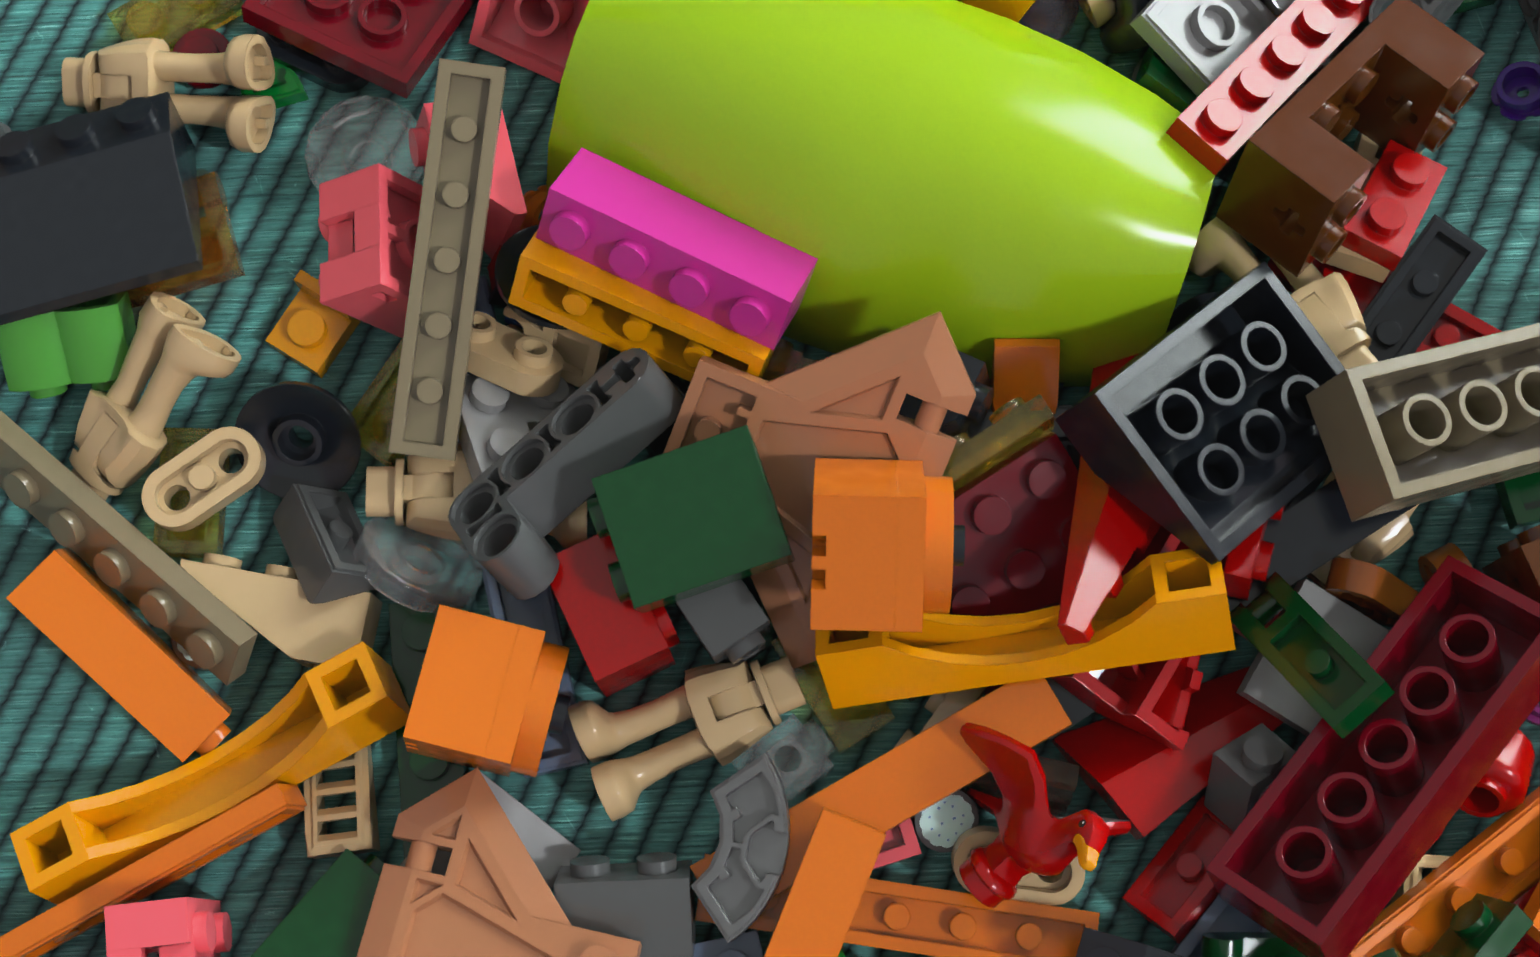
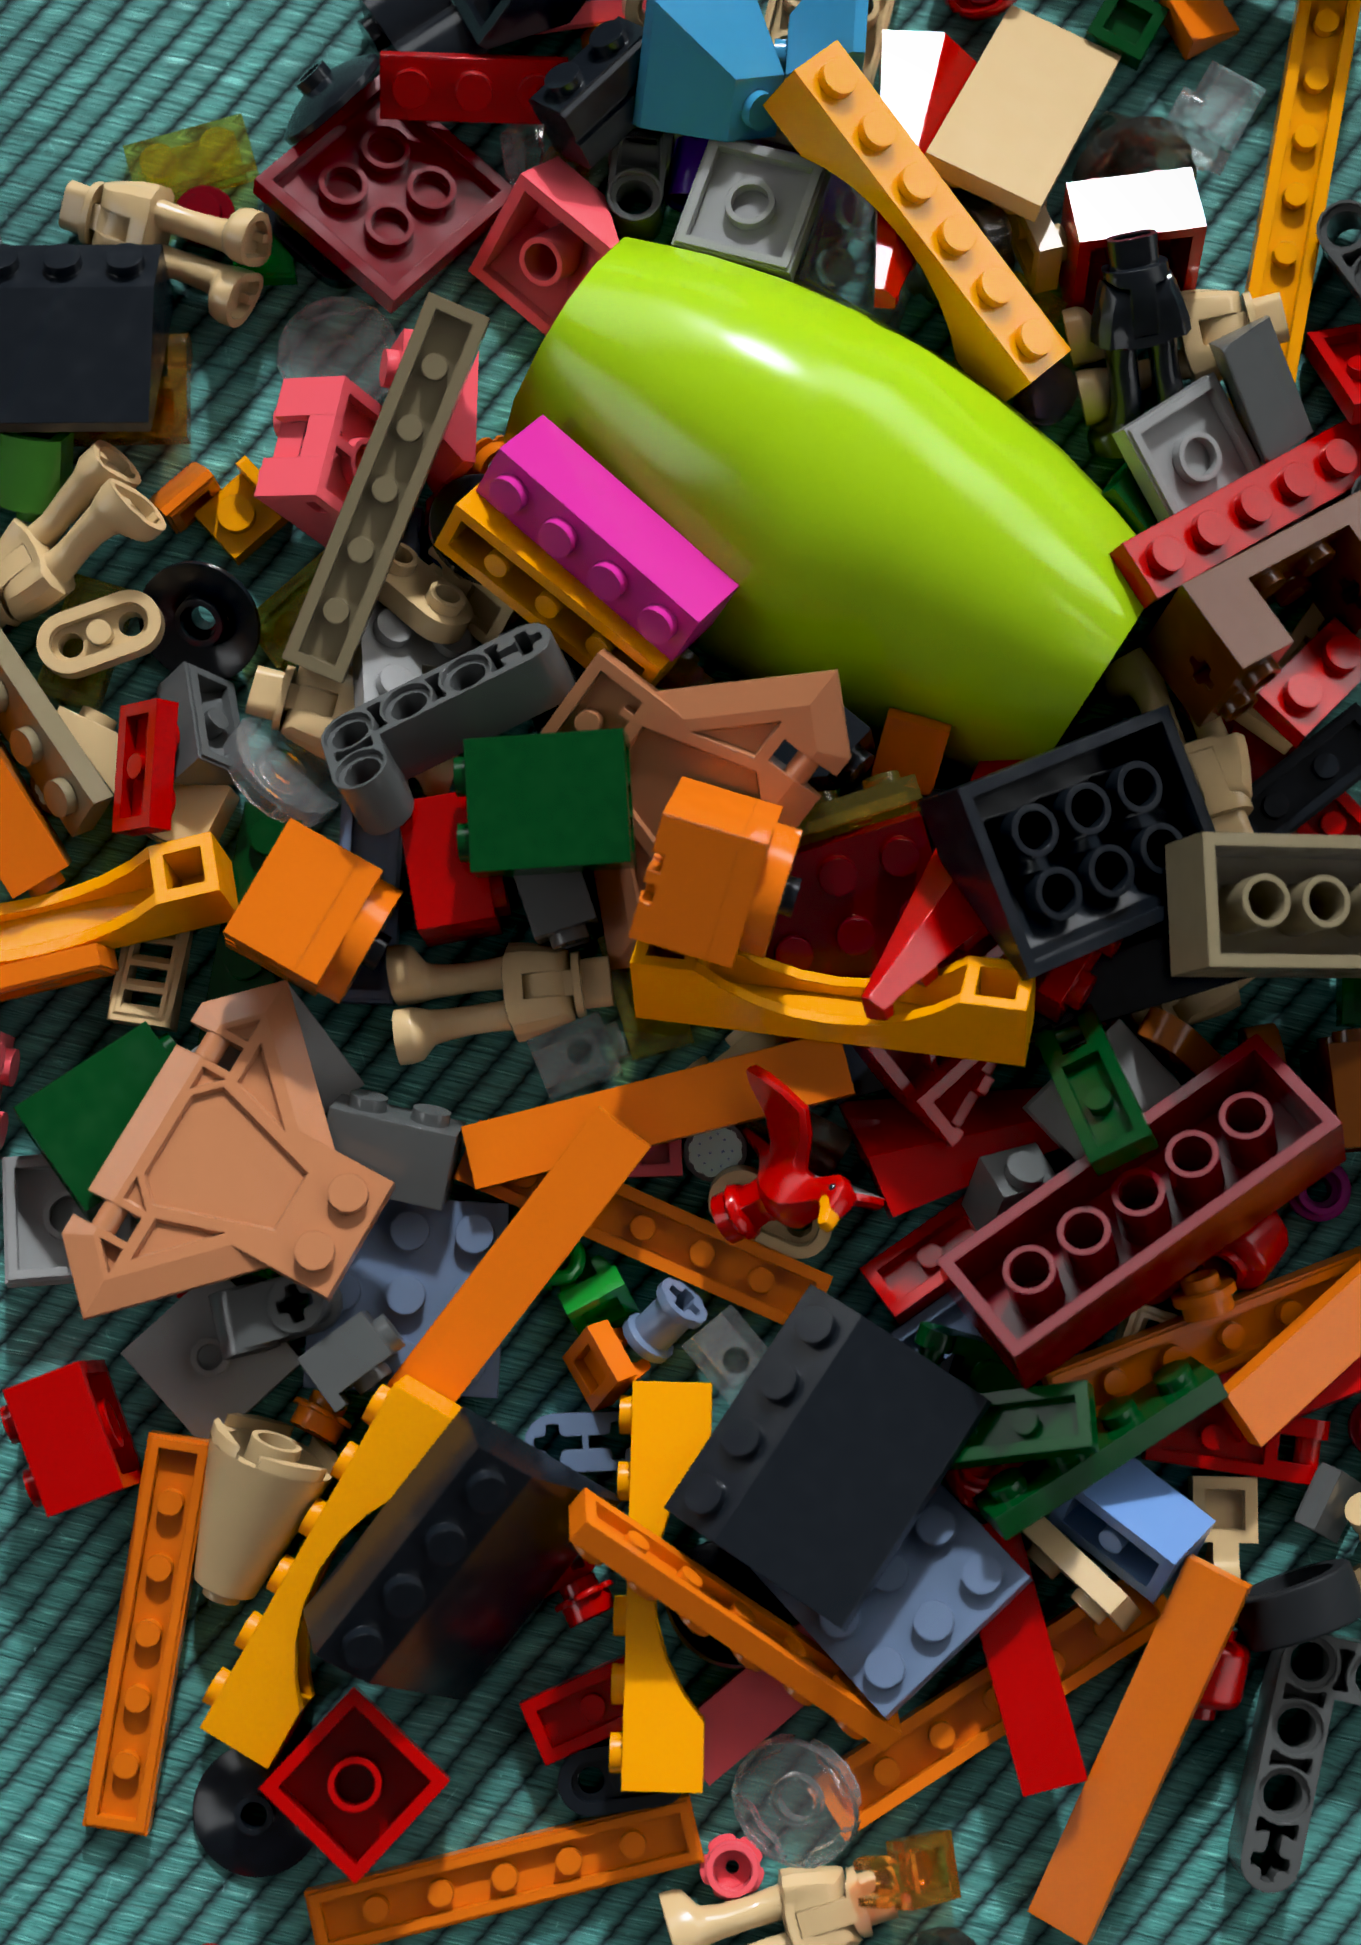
camera: 10 degrees right, 5 degrees up
(253, 325) = (185, 496): none -> orange slope
(282, 596) = (145, 767): none -> red plate
(750, 847) = (522, 1123): flat silver tile -> none
(1474, 829) = (1204, 1295): none -> orange plate

